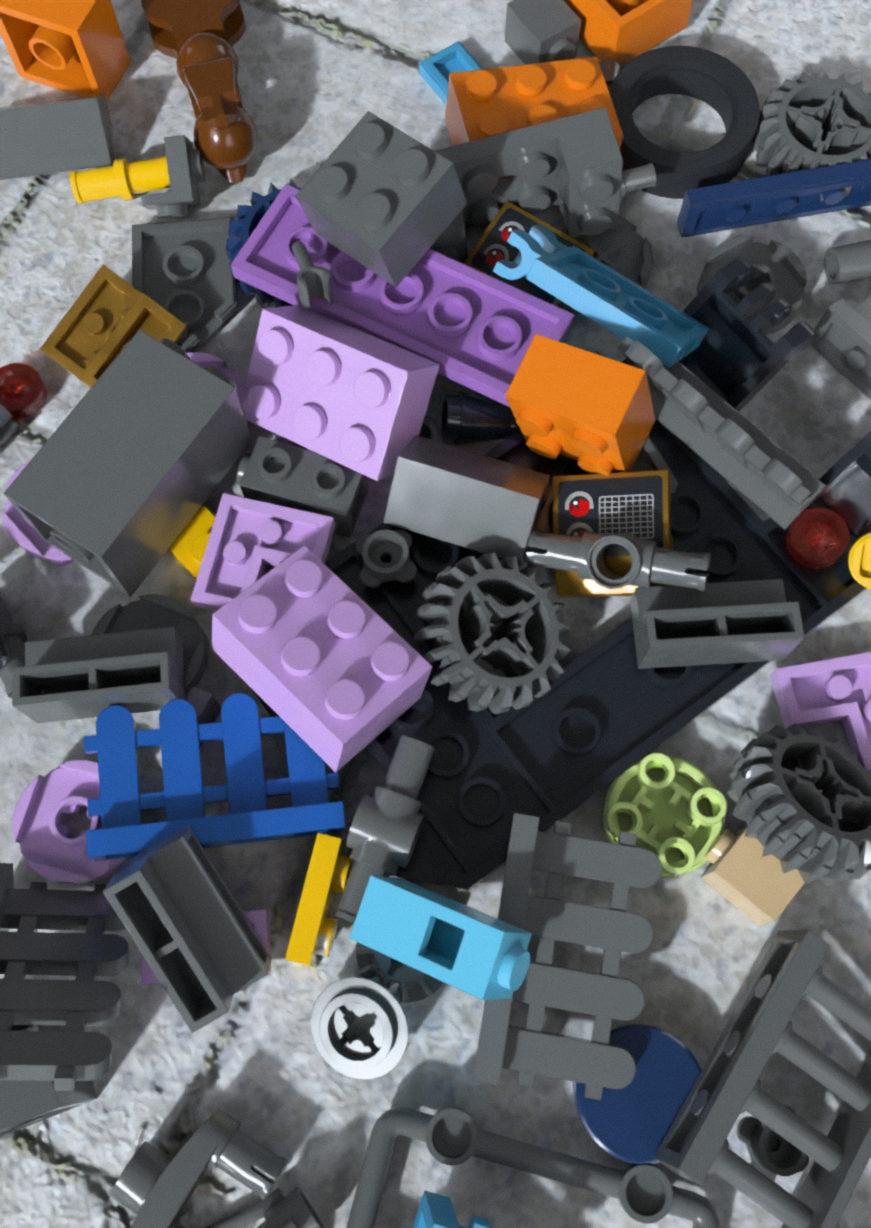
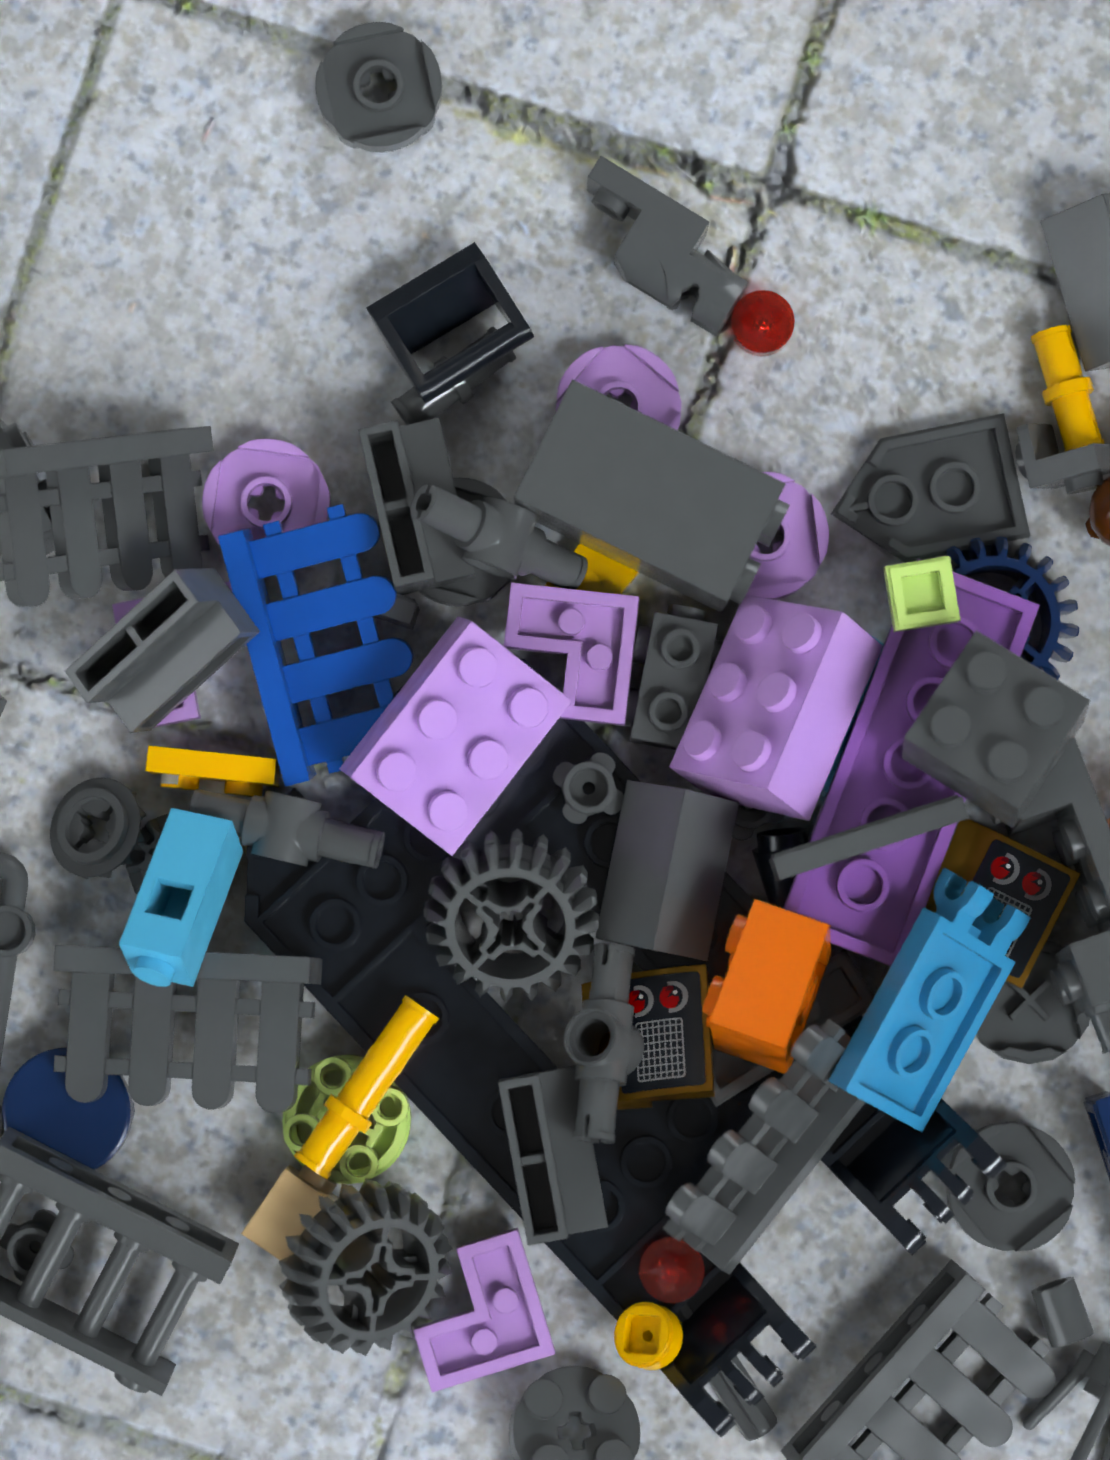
camera: 80 degrees right, 15 degrees up
(104, 323) = (837, 427): pearl gold slope -> none
(140, 596) = (498, 537): none -> dark grey pin
(259, 260) = (921, 594): none -> yellowish green tile
(311, 279) = (898, 658): dark grey hand -> none
(461, 314) = (868, 837): none -> dark grey tile
(641, 785) = (365, 1088): none -> yellow pin

